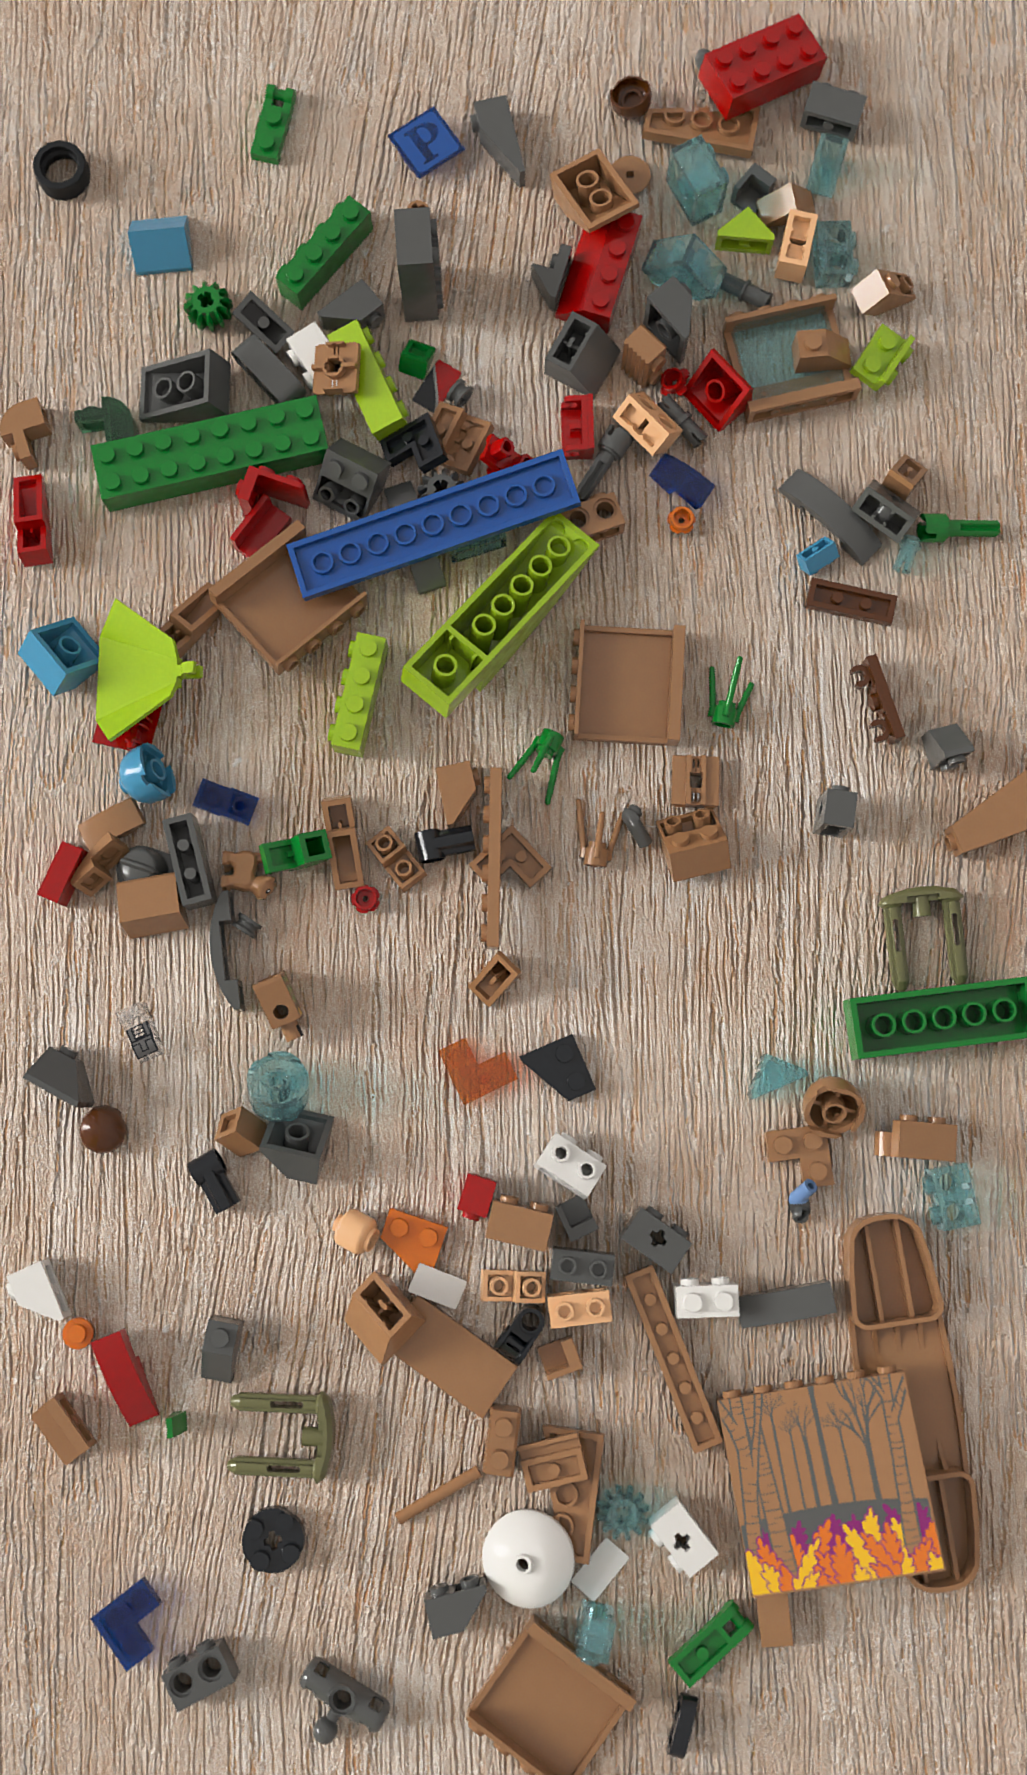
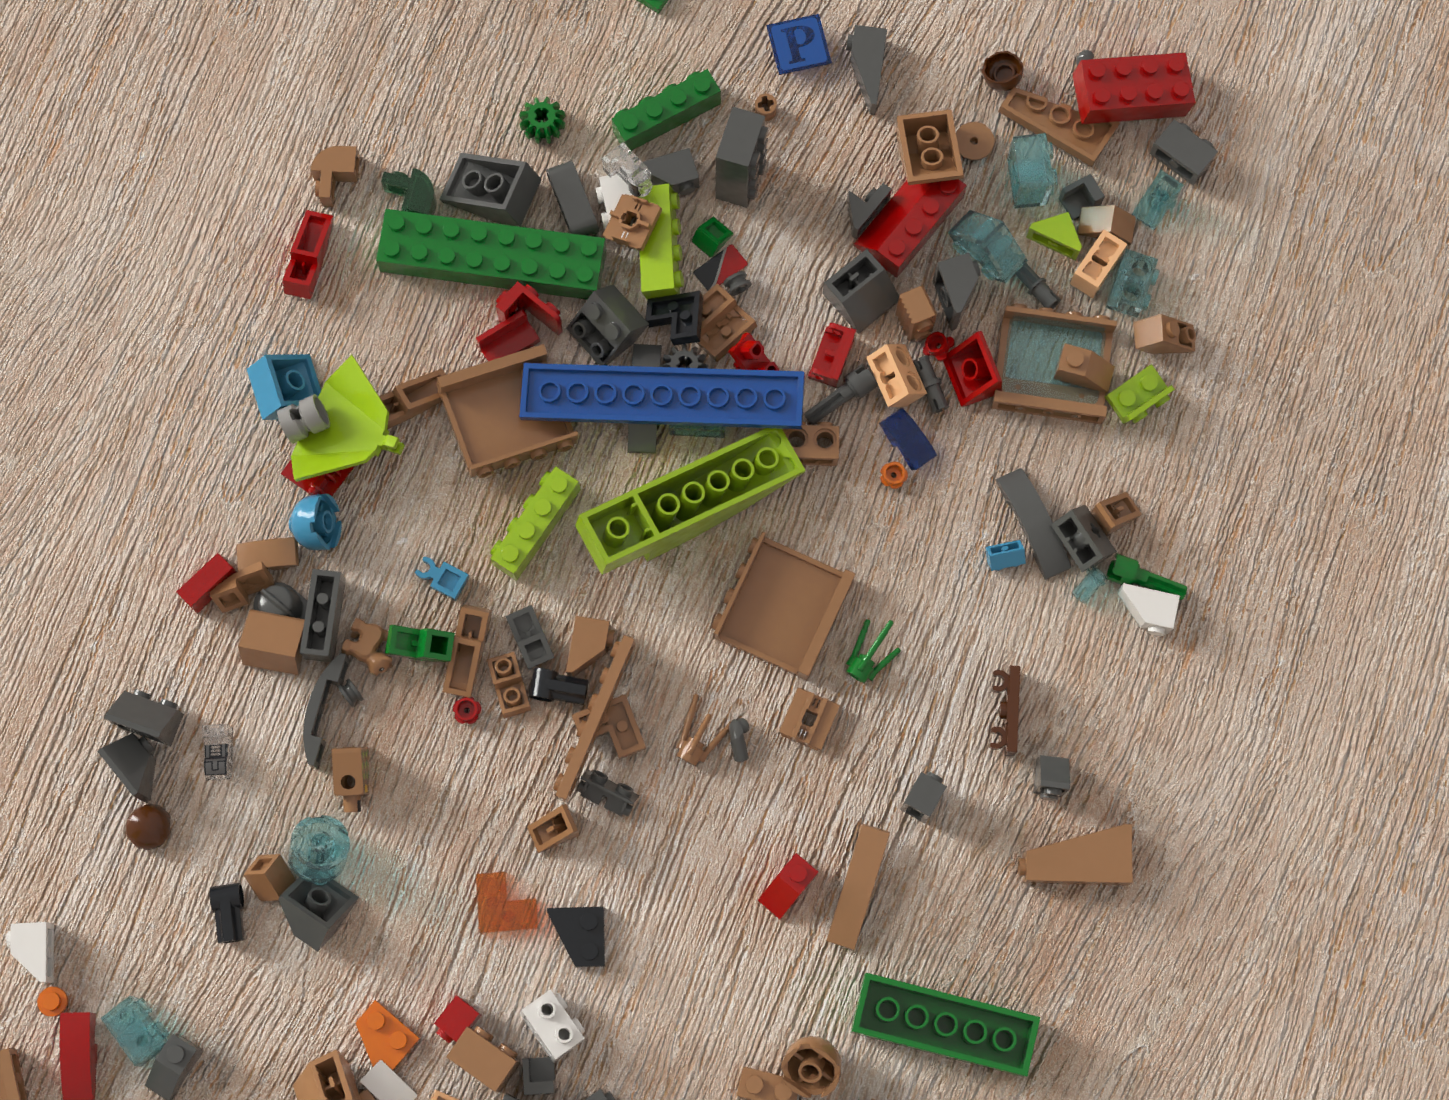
camera: 20 degrees right, 5 degrees down
(57, 1025) = (145, 717): none -> dark grey slope
(93, 678) = (301, 419): none -> light grey wheel
(161, 245) = (523, 48): dark azure slope -> none
(171, 1328) = (136, 1030): none -> clear light blue brick
(225, 802) = (376, 573): clear blue slope -> none
(262, 322) = (584, 153): dark grey slope -> none
(295, 782) = (446, 579): none -> dark azure plate
(313, 318) = (629, 169): none -> clear leg
(355, 1231) = (335, 1008): light nougat head -> none
(397, 805) = (529, 636): none -> dark grey slope
(543, 923) = (618, 795): none -> dark grey hinge
(546, 746) = (687, 634): green plant -> none
(693, 844) = (783, 776): medium nougat slope -> none
(739, 945) = (788, 886): none -> red slope
(773, 1074) = (771, 1017): clear light blue slope -> none
(805, 920) = (858, 886): none -> medium nougat slope
(851, 602) = (1019, 609): reddish brown plate -> none
(920, 899) = (972, 908): olive piece -> none
(973, 553) = (1150, 608): none -> white slope

